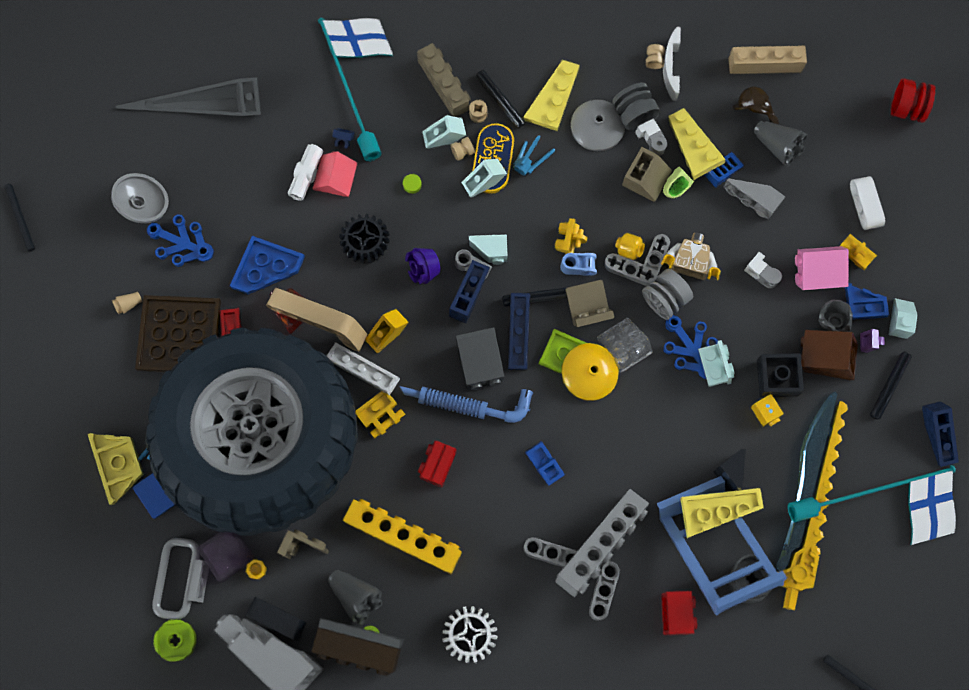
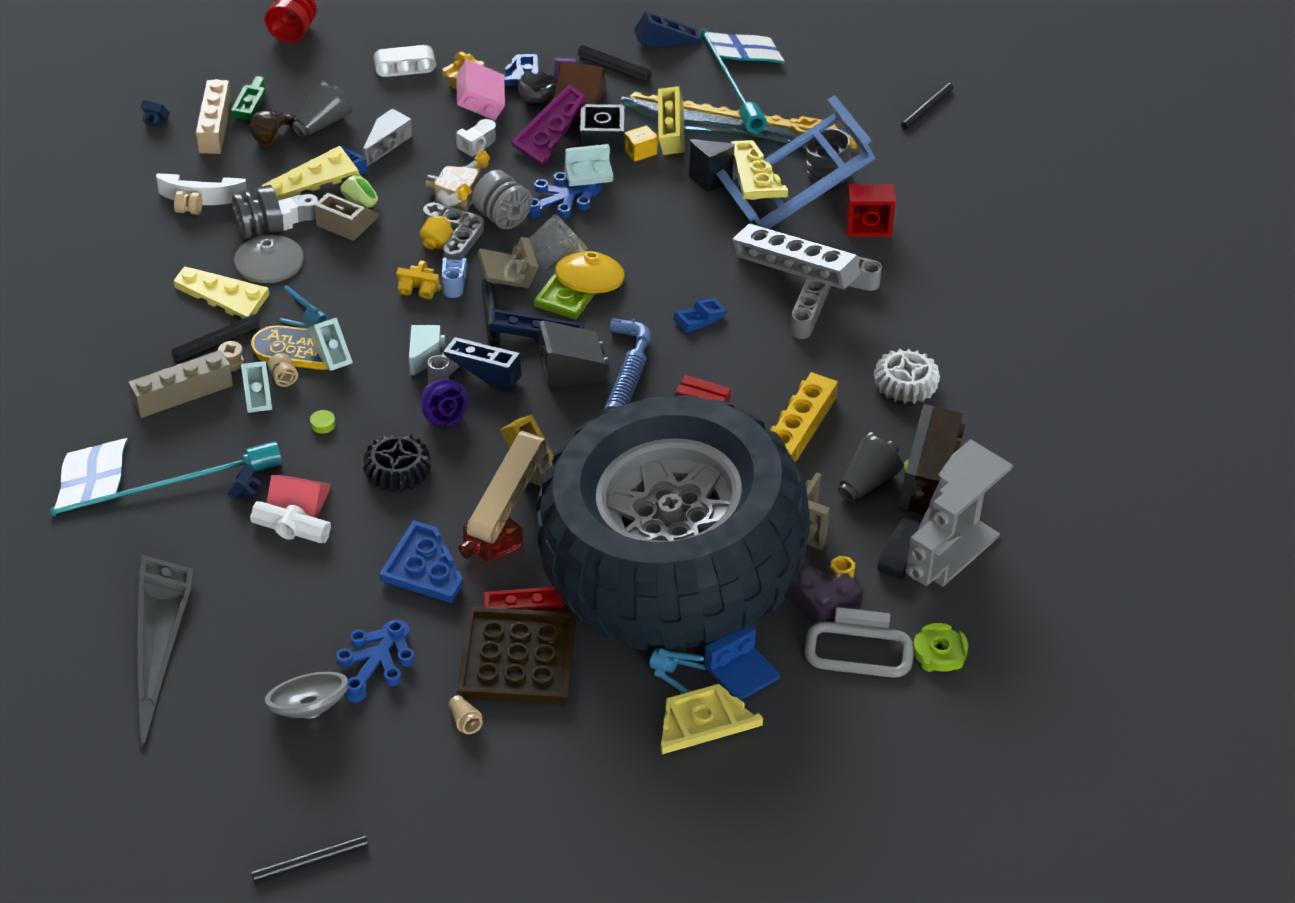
camera: 90 degrees left, 30 degrees down
(772, 15) = (154, 110): none -> dark blue tile
(774, 328) = (546, 130): none -> magenta wing
(792, 435) = (671, 120): none -> light yellow brick
(798, 85) = (249, 100): none -> green hinge
(903, 319) = (545, 44): light aqua slope -> none

